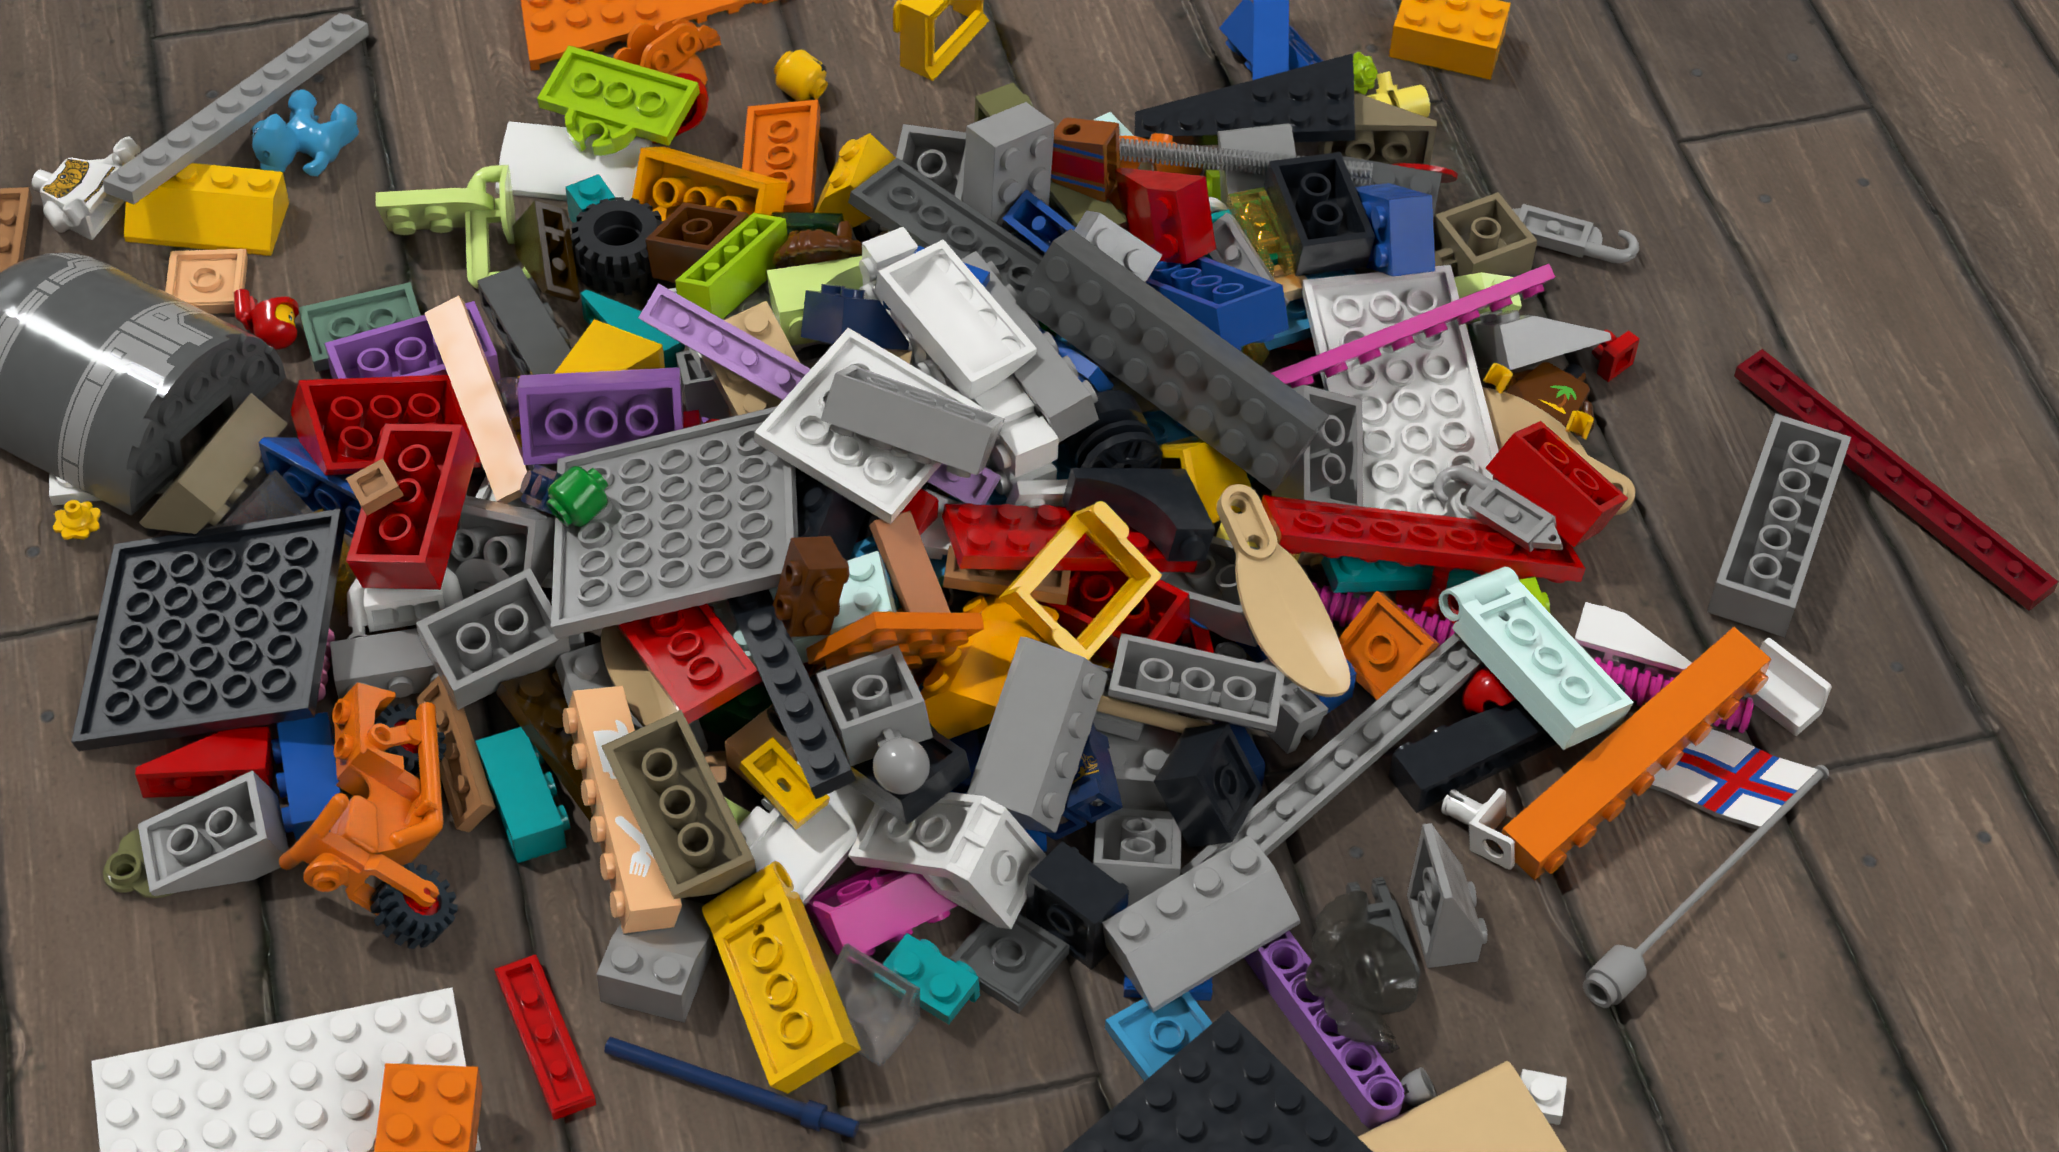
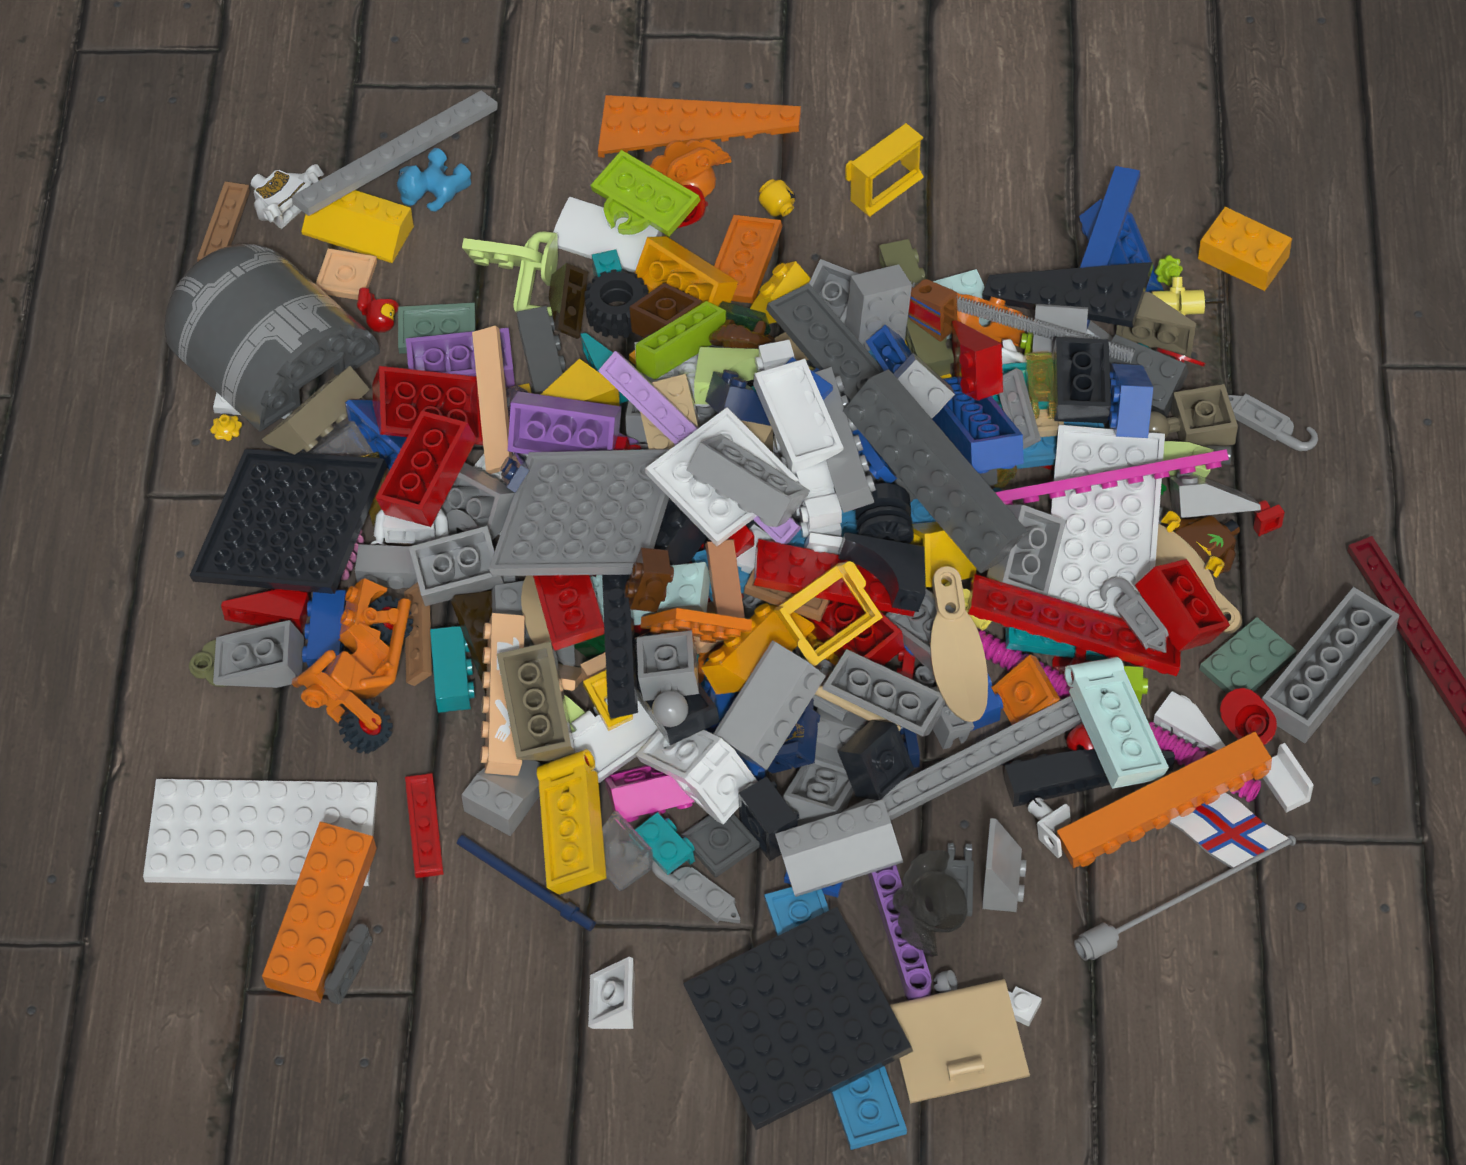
camera: 20 degrees right, 5 degrees up
(374, 486) = (402, 453): medium nougat plate -> none
(577, 496) = (529, 483): green head -> none
(1005, 1041) = (700, 893): none -> light grey plate
(1662, 543) = (1248, 658): none -> sand green plate
(1700, 612) = (1247, 713): none -> red piece

